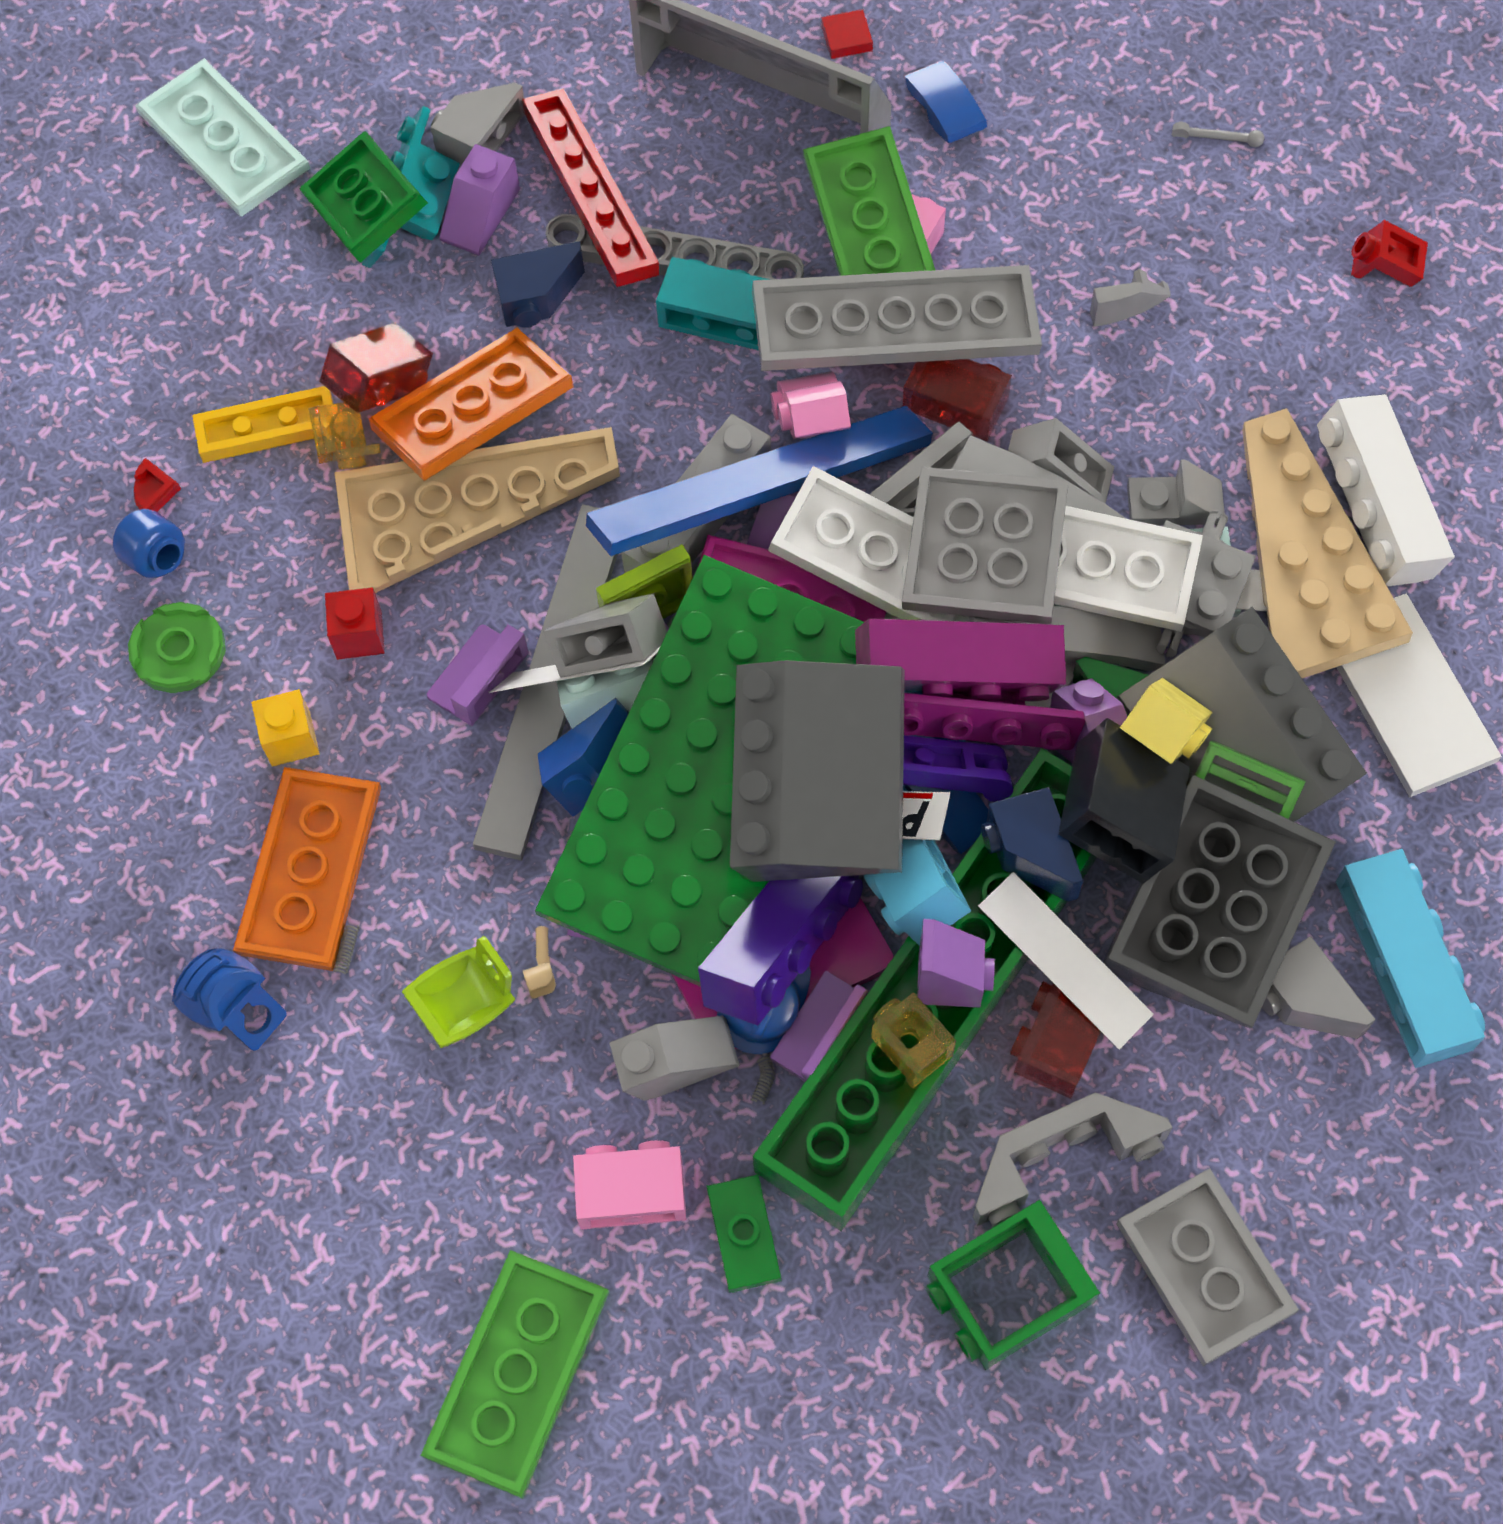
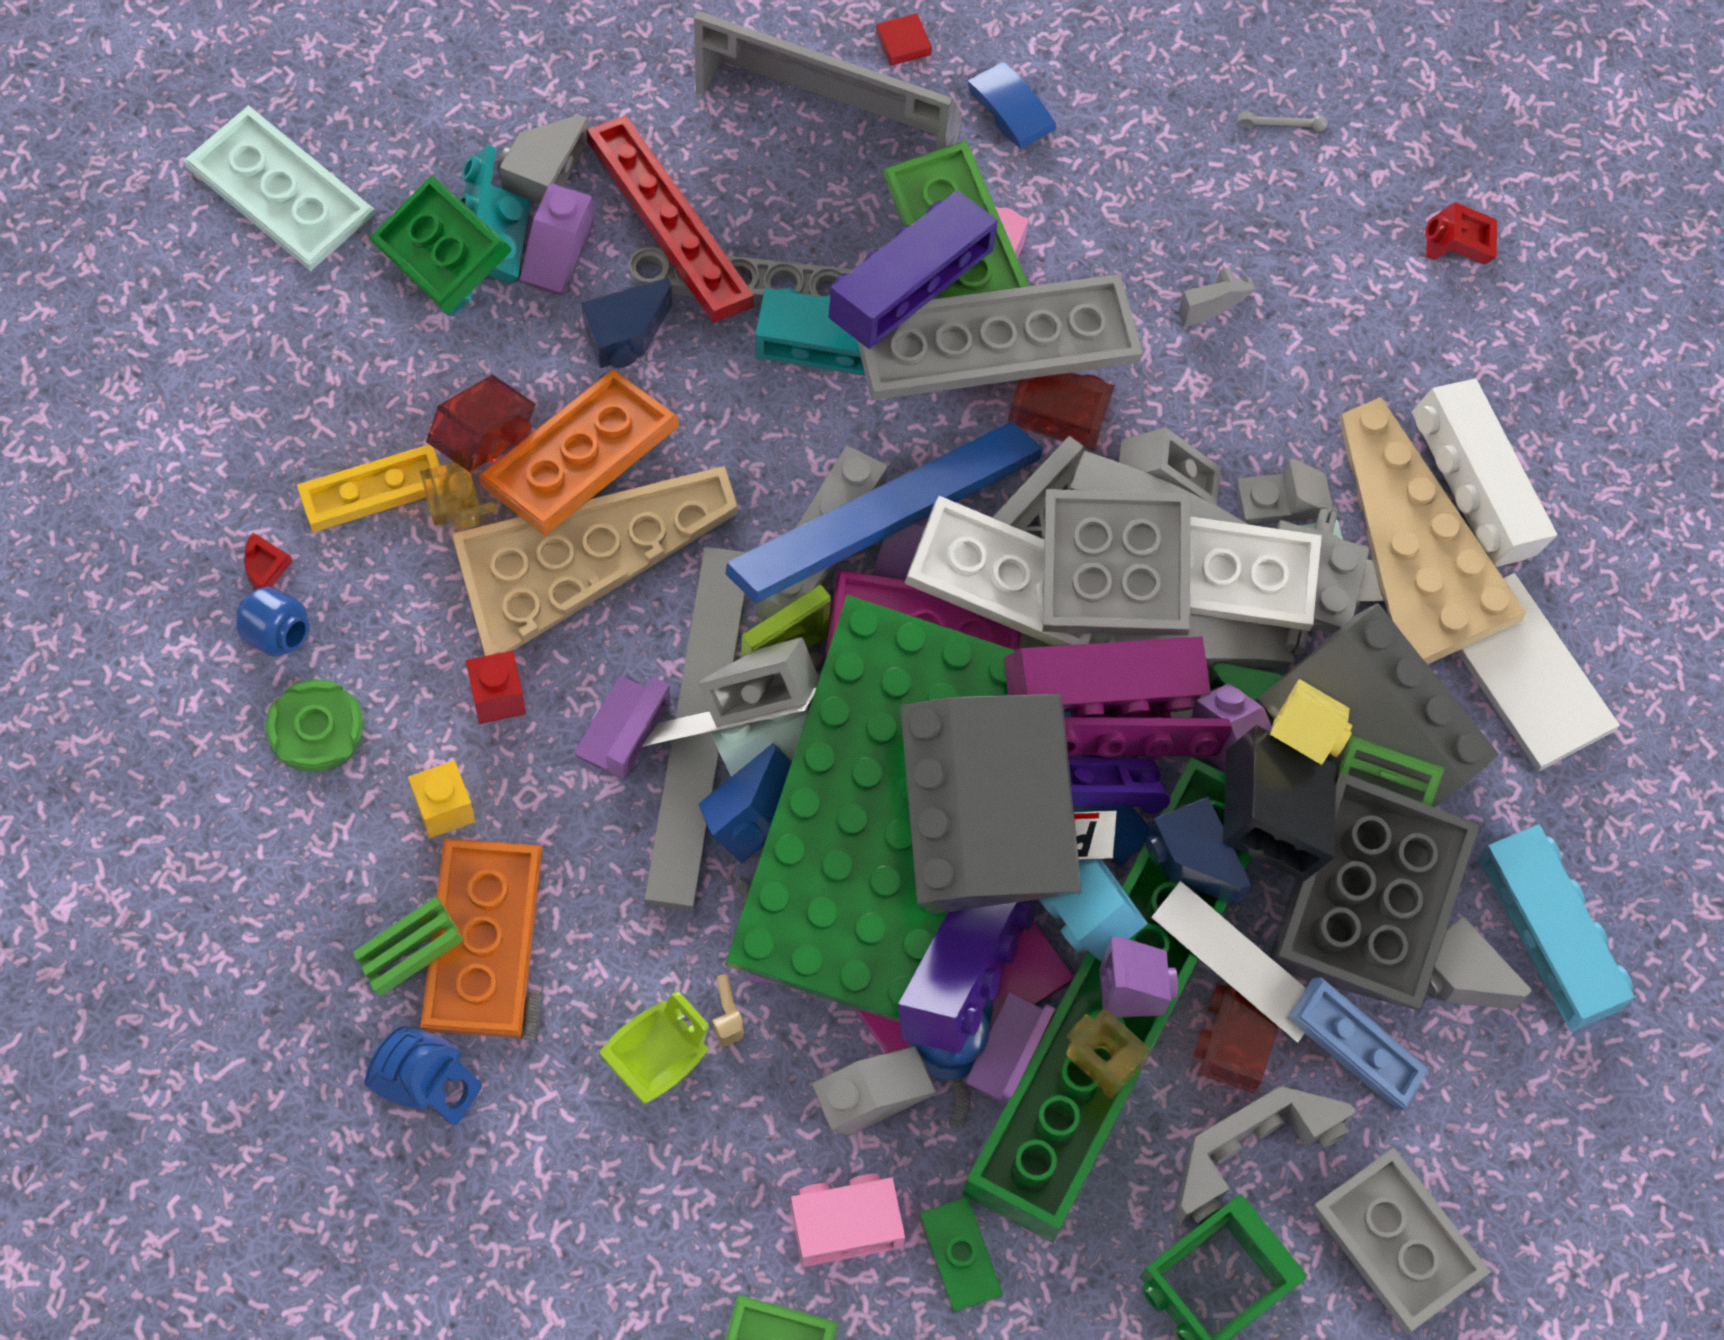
camera: 15 degrees left, 0 degrees up
(230, 862) = (403, 940): none -> bright green tile
(811, 405) = (922, 429): bright pink brick -> none
(815, 243) = (911, 268): none -> dark purple brick
(1184, 1057) = (1358, 1043): none -> medium blue tile

